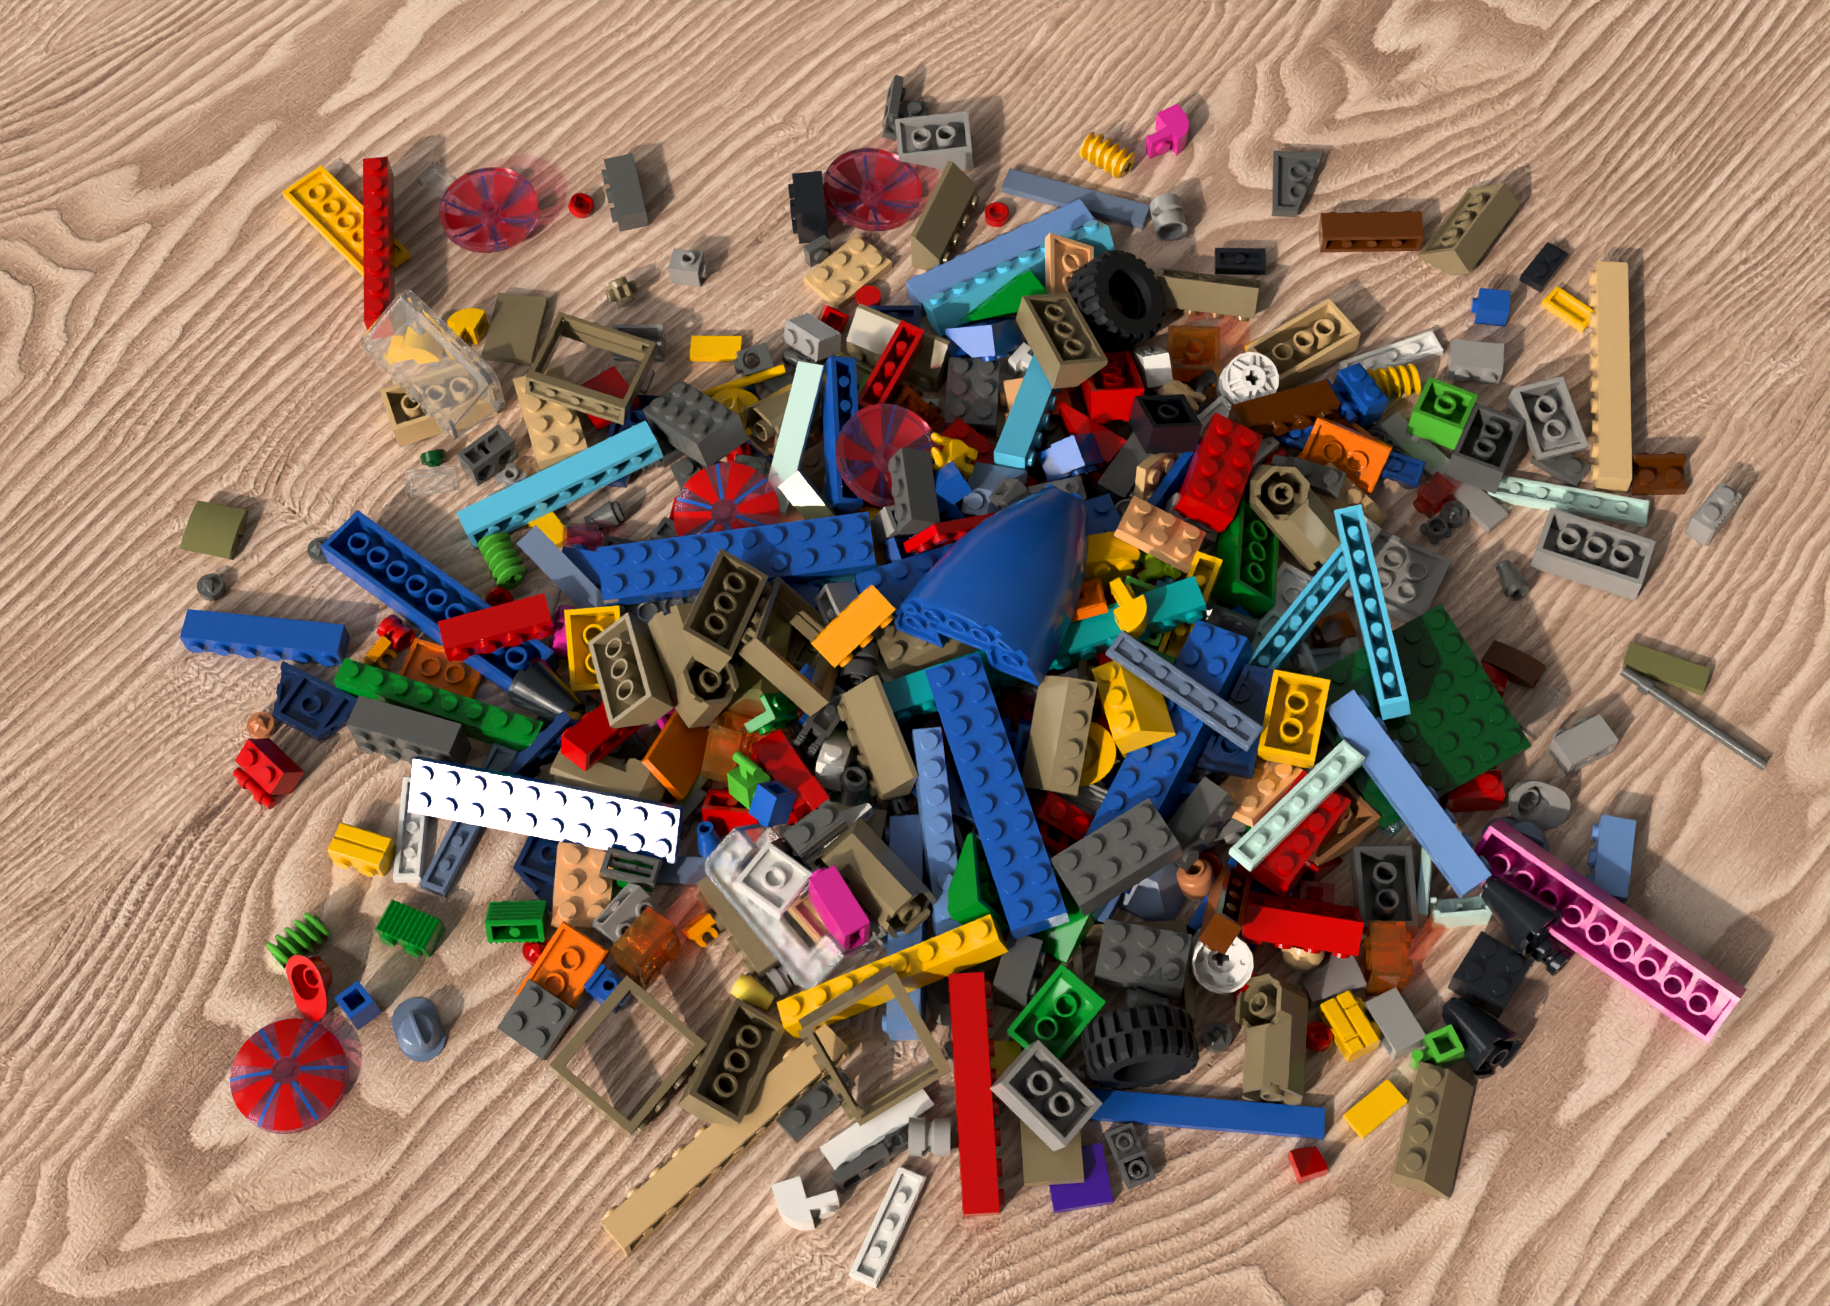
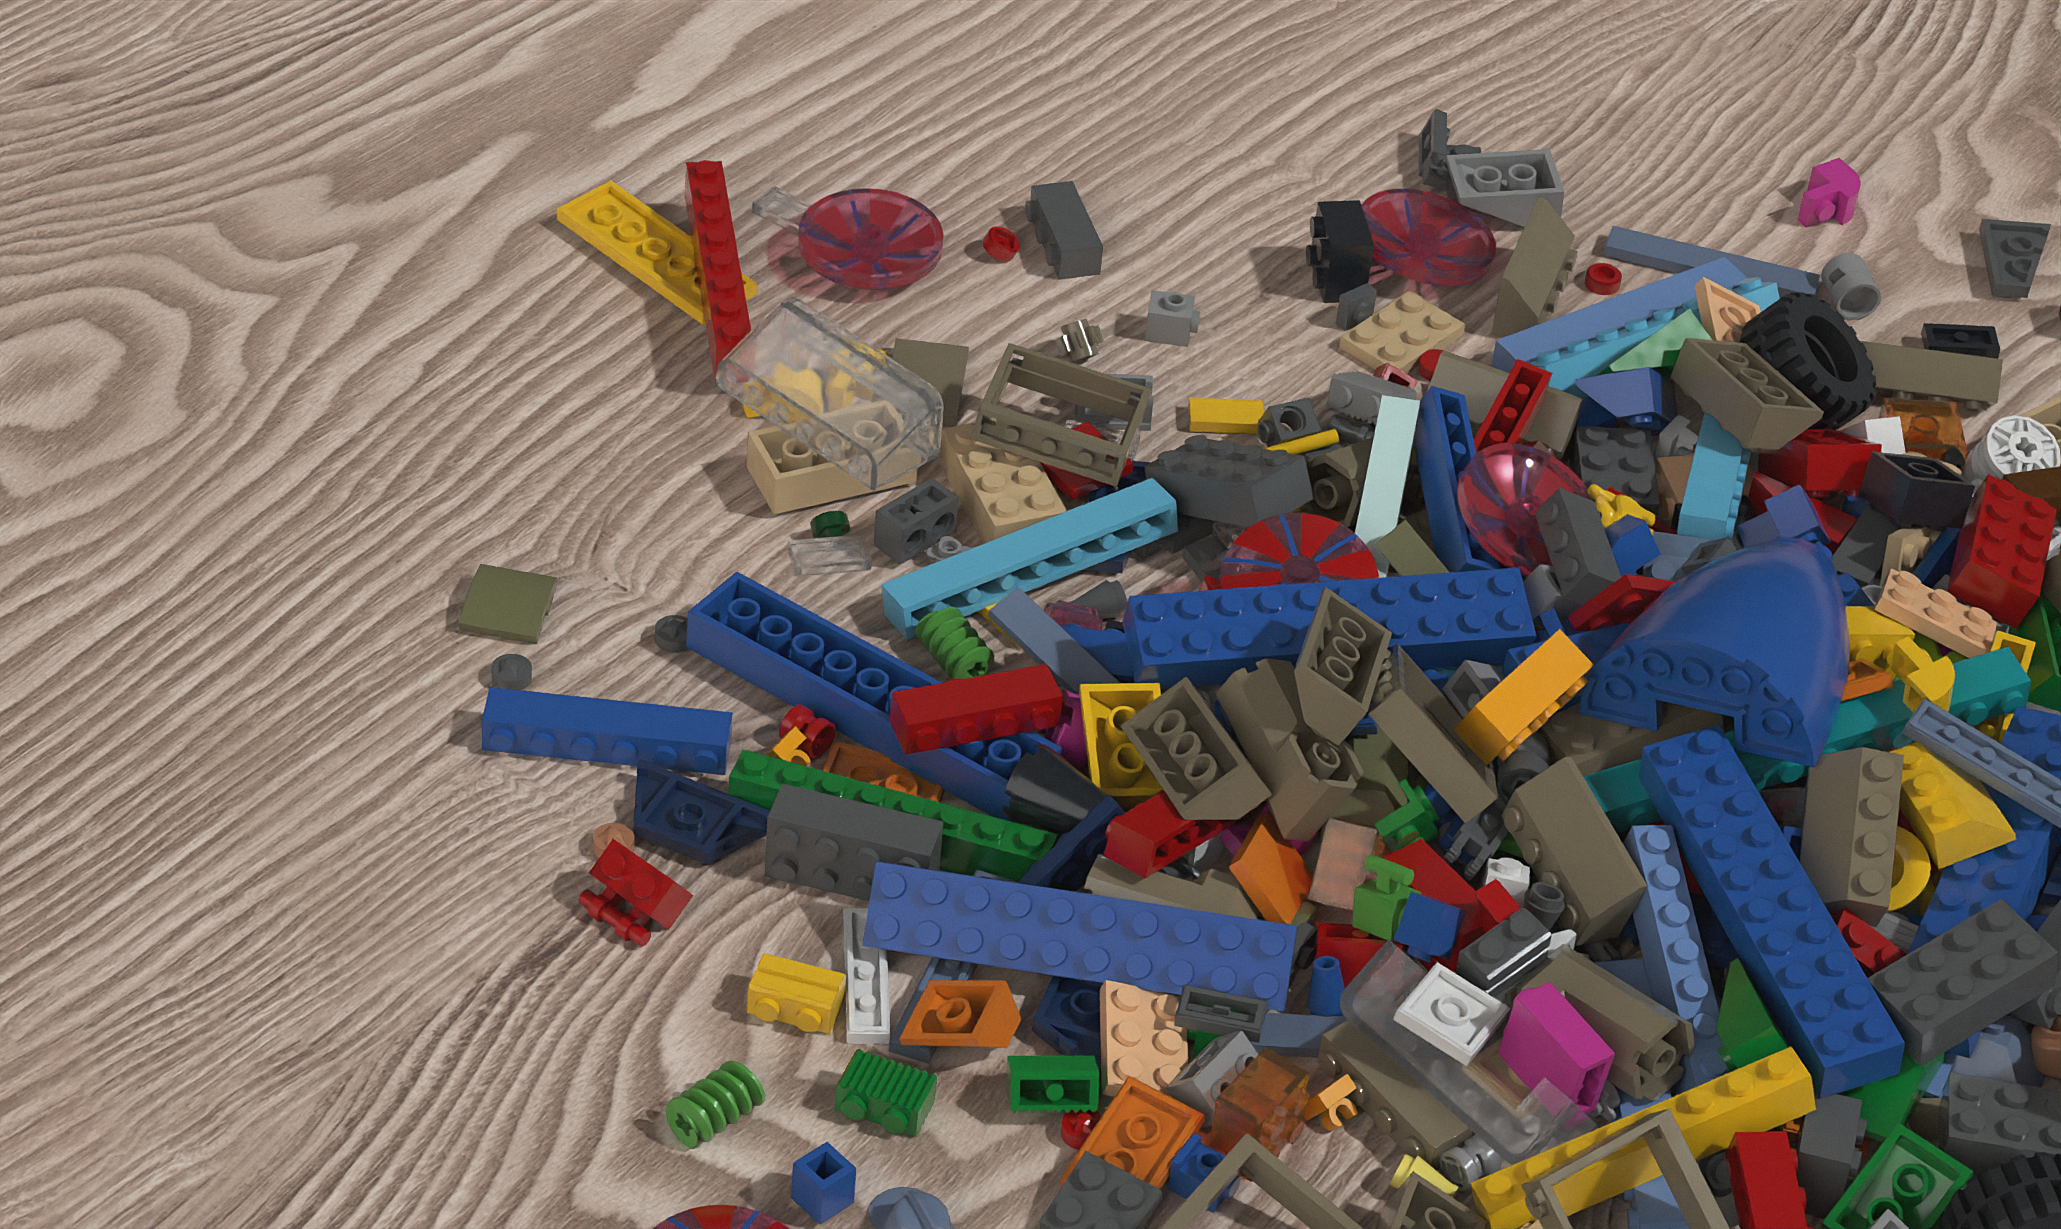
camera: 10 degrees left, 20 degrees down
(310, 984) = (740, 1158): red piece -> none
(464, 872) = (963, 1015): none -> orange slope
(1106, 156) = (1750, 216): yellow piece -> none

